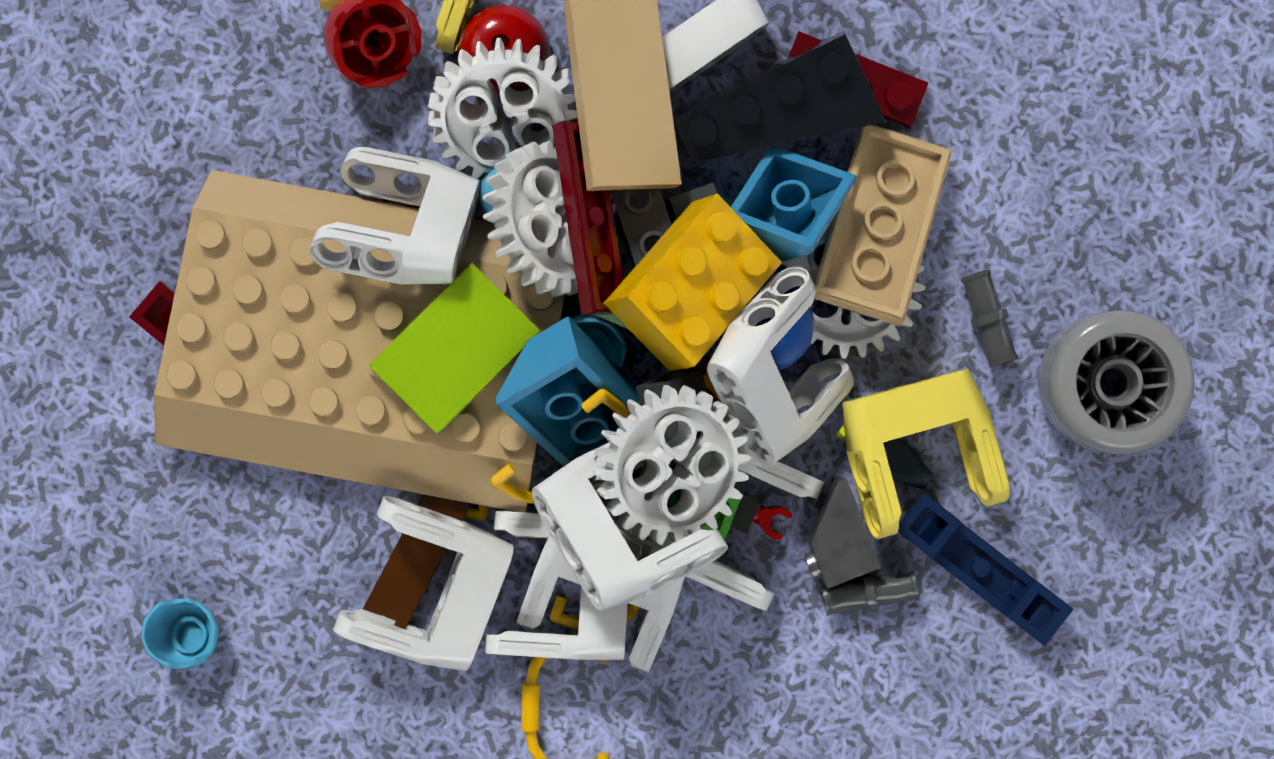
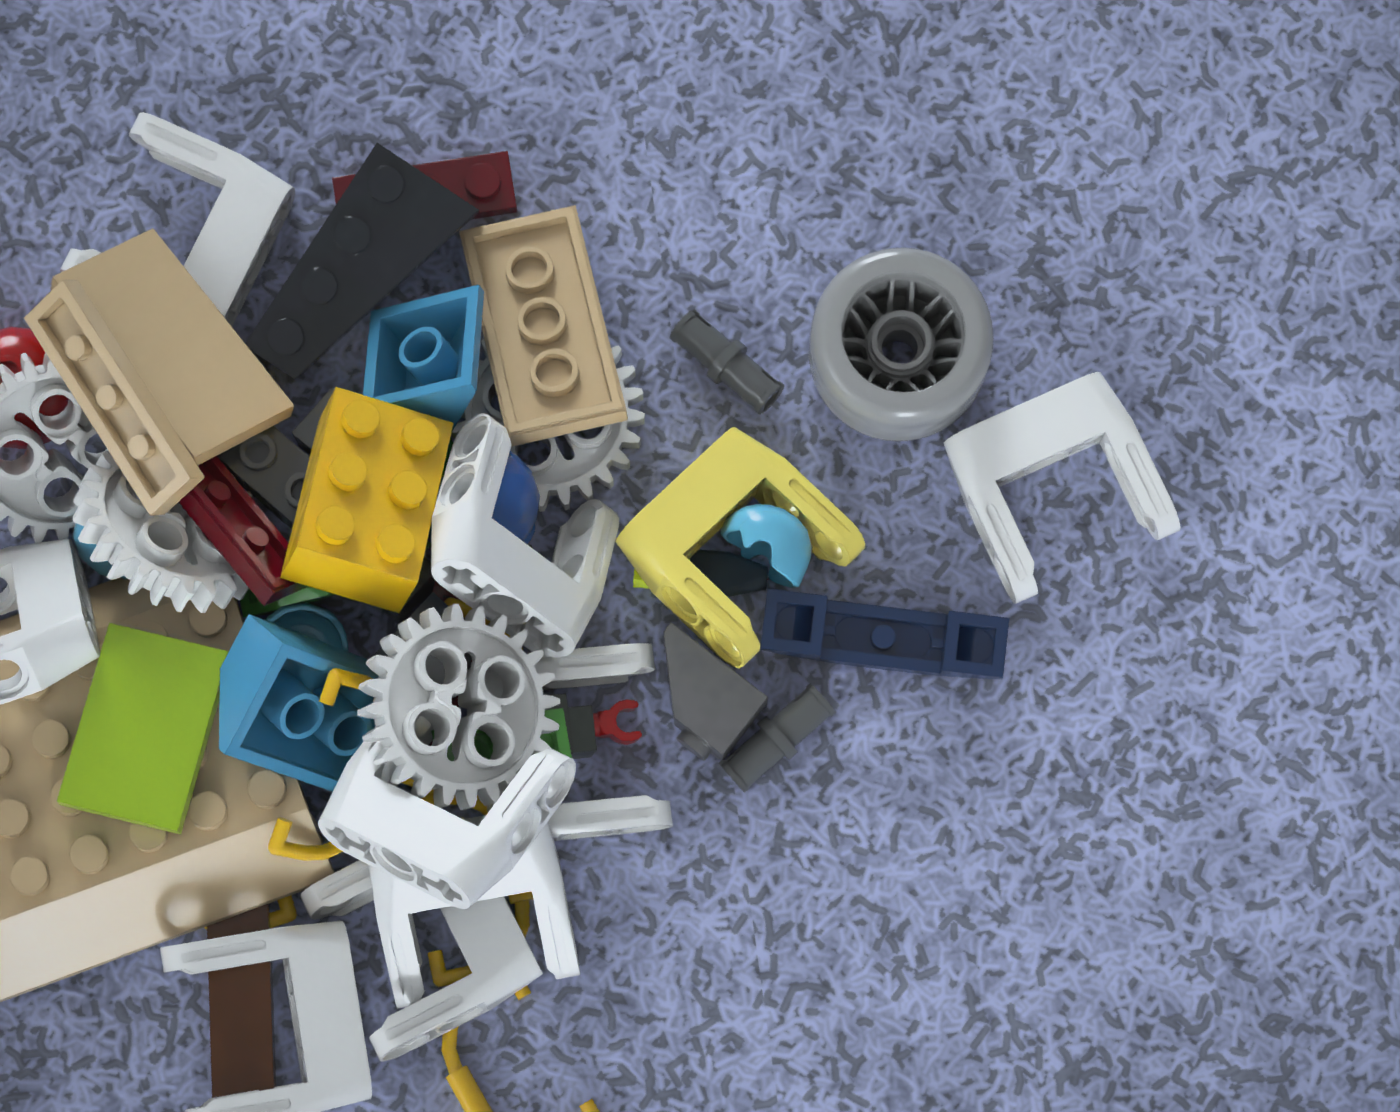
camera: 30 degrees left, 10 degrees down
(562, 111) = (114, 397): none -> tan plate
(952, 460) = (774, 534): none -> medium azure hair
(1169, 495) = (1036, 437): none -> white connector

